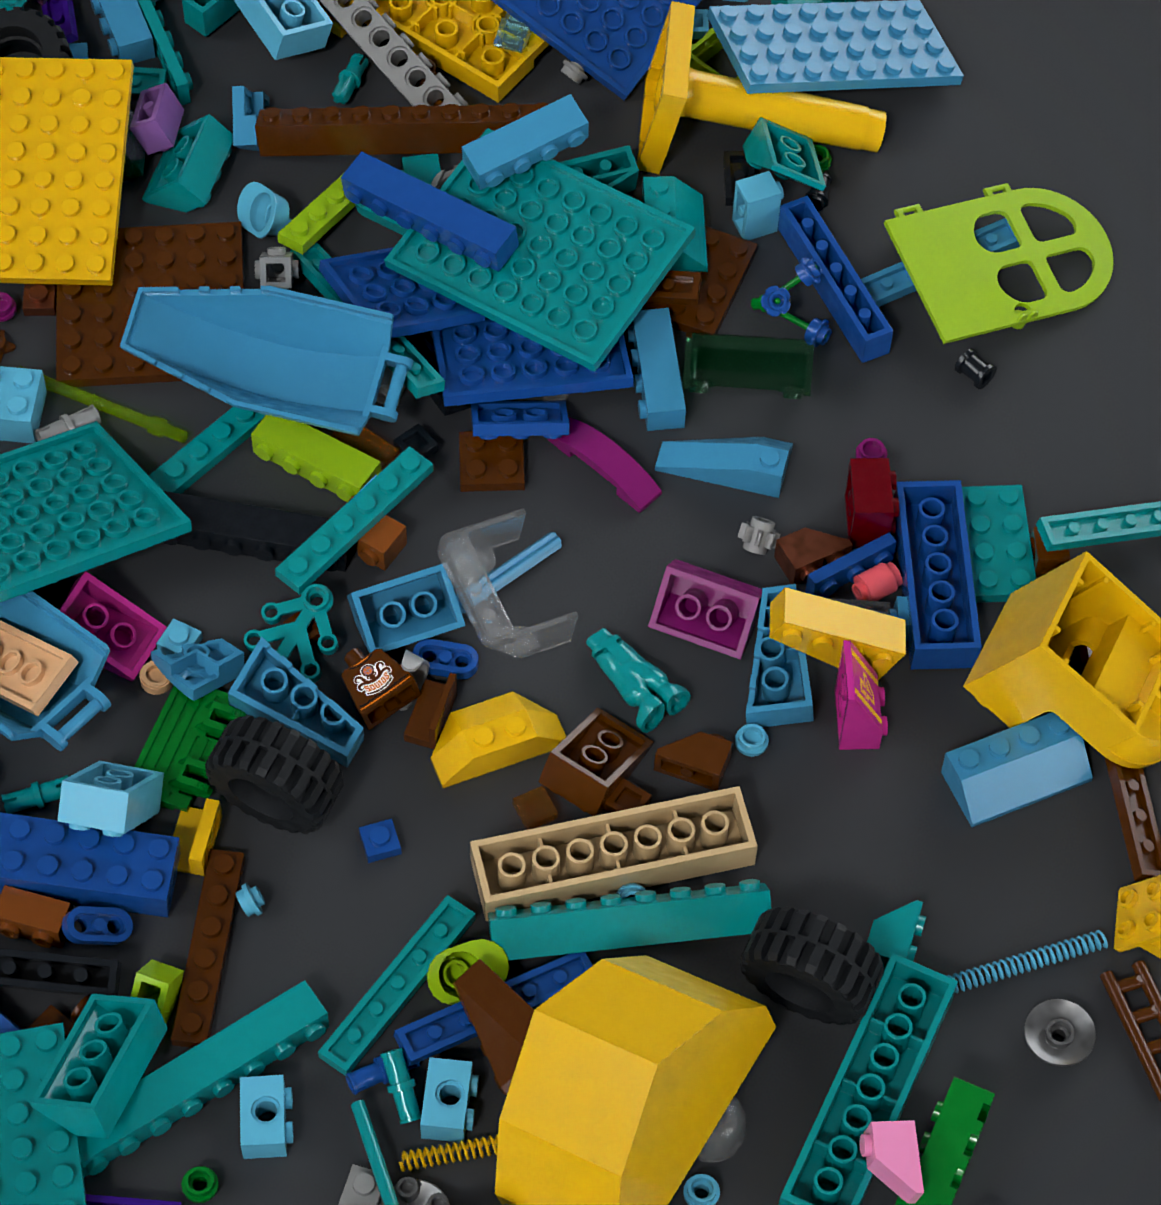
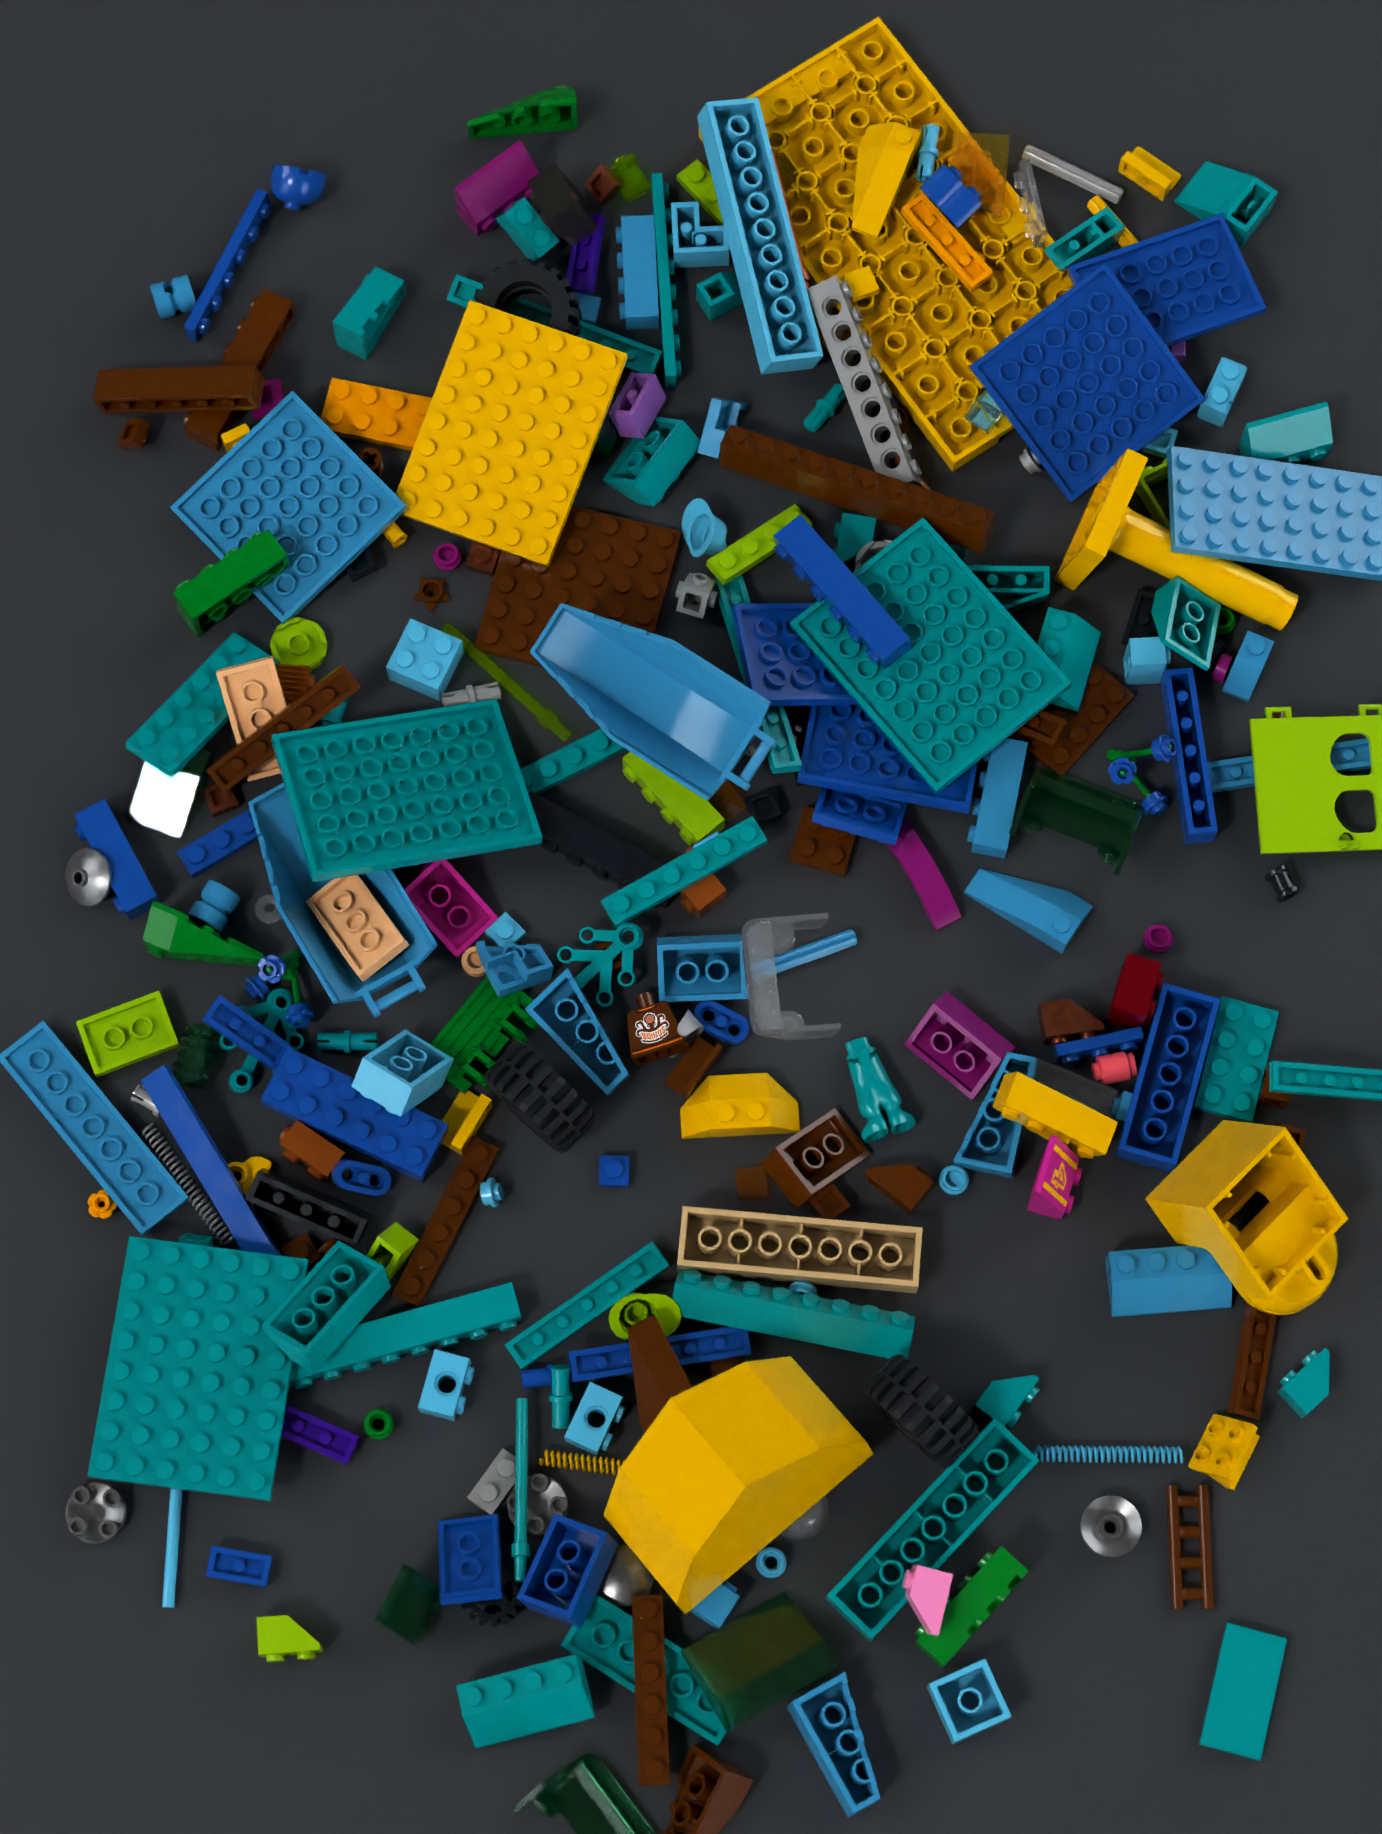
camera: 20 degrees right, 15 degrees up
(525, 142) = (948, 550): dark azure brick -> none
(758, 535) = (1028, 990): light grey gear -> none
(835, 197) = (1222, 667): none -> magenta tile
(859, 188) = (1247, 666): none -> dark azure slope

